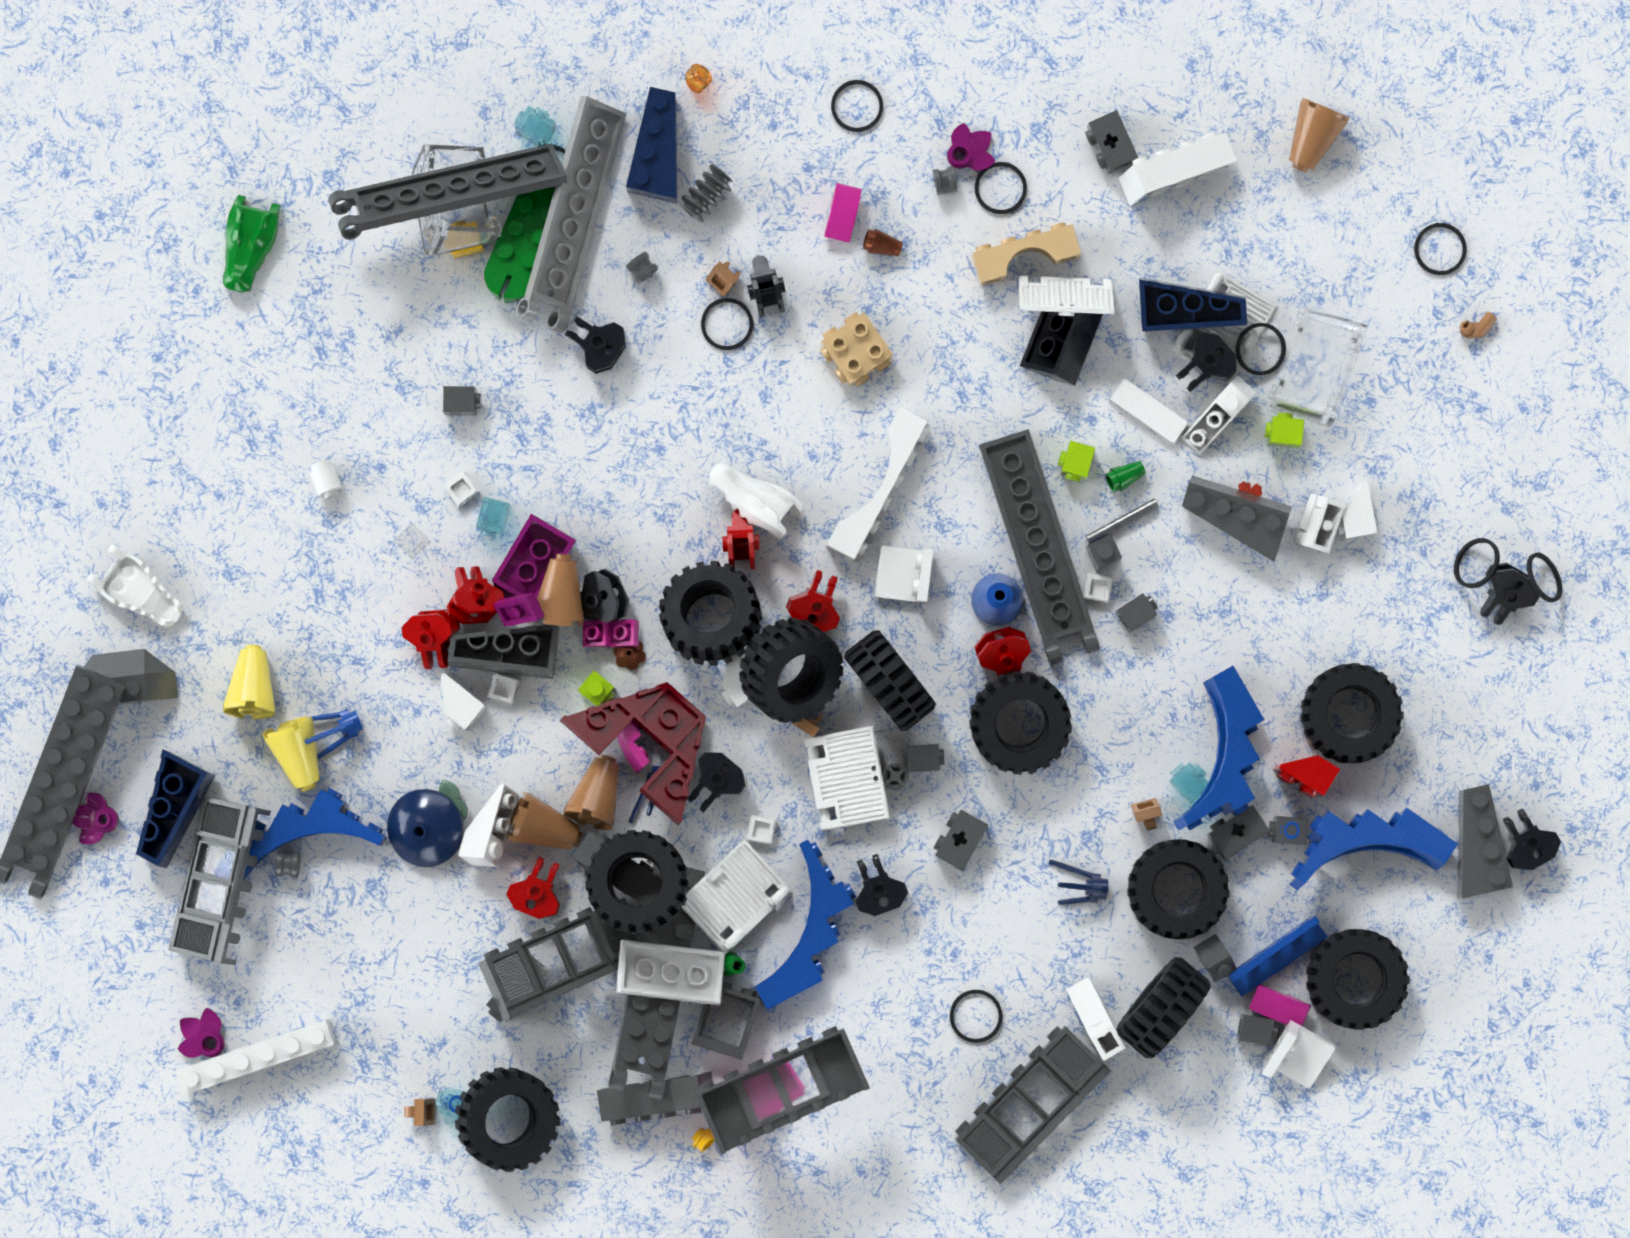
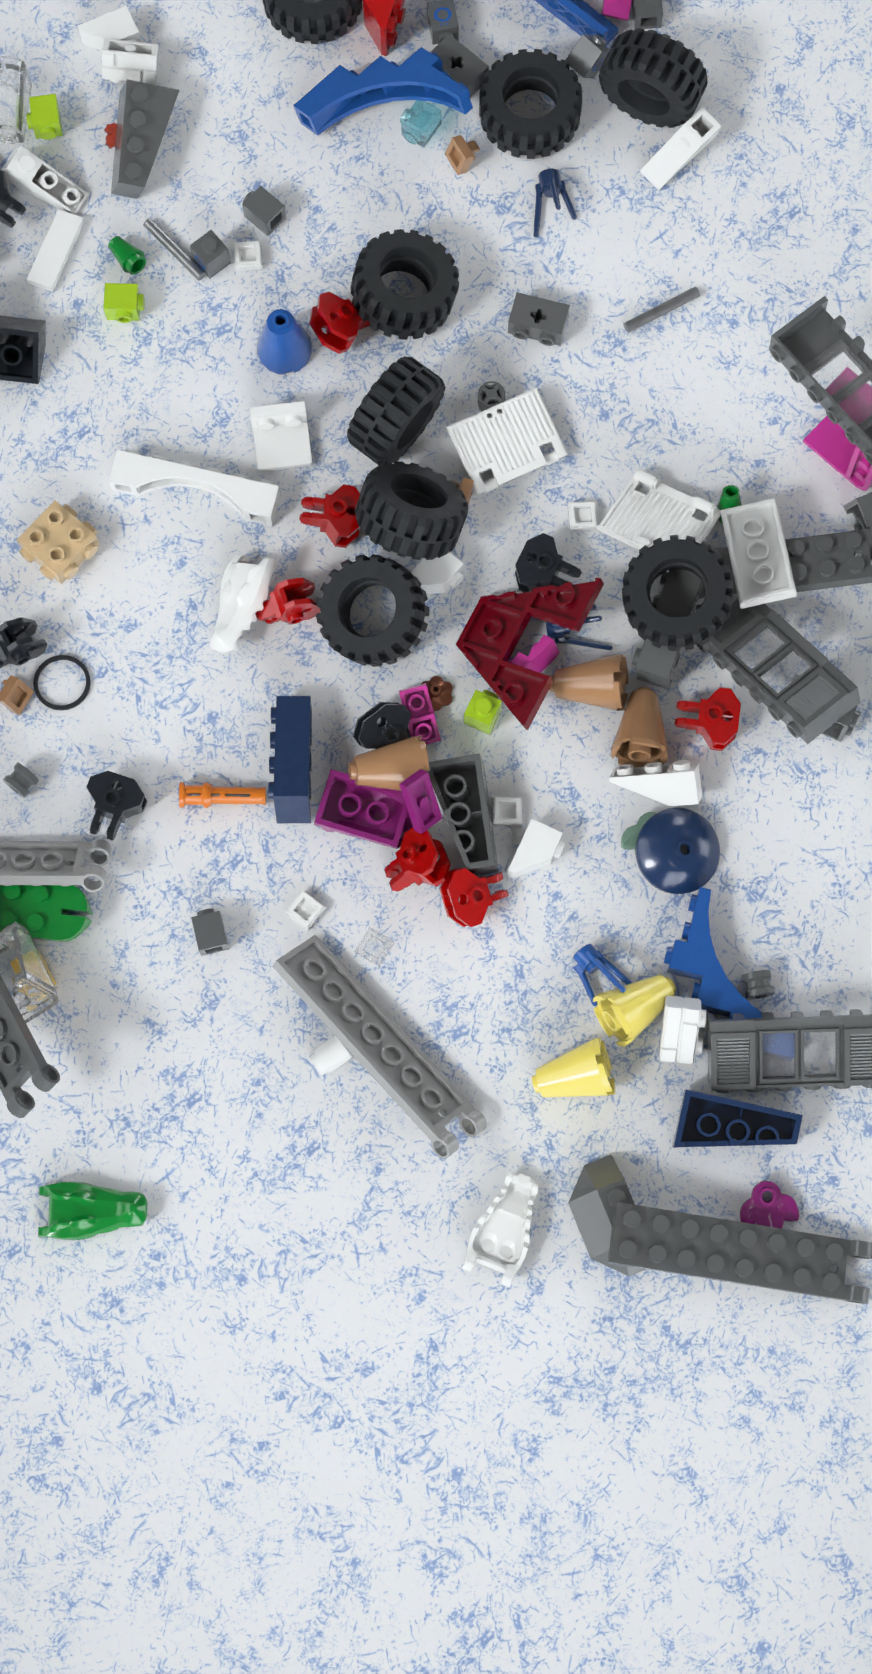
camera: 105 degrees left, 10 degrees down
(264, 784) = (680, 1030): none -> white brick
(322, 520) = (379, 1044): none -> light grey hinge
(493, 517) = (327, 865): clear light blue brick -> none
(585, 428) = (257, 795): none -> orange pin
(598, 509) = (292, 759): none -> dark blue wedge
(723, 1047) = (794, 475): dark grey window -> none
(826, 900) = (674, 431): blue arch -> none
(877, 888) = (614, 381): black hinge -> none
(924, 758) = (465, 374): dark grey brick -> none
(944, 958) = (661, 309): none -> flat silver bar
(952, 1016) = (714, 245): black piece -> none
(1031, 1103) = (782, 190): dark grey window -> none
(1037, 542) = (216, 319): dark grey hinge -> none

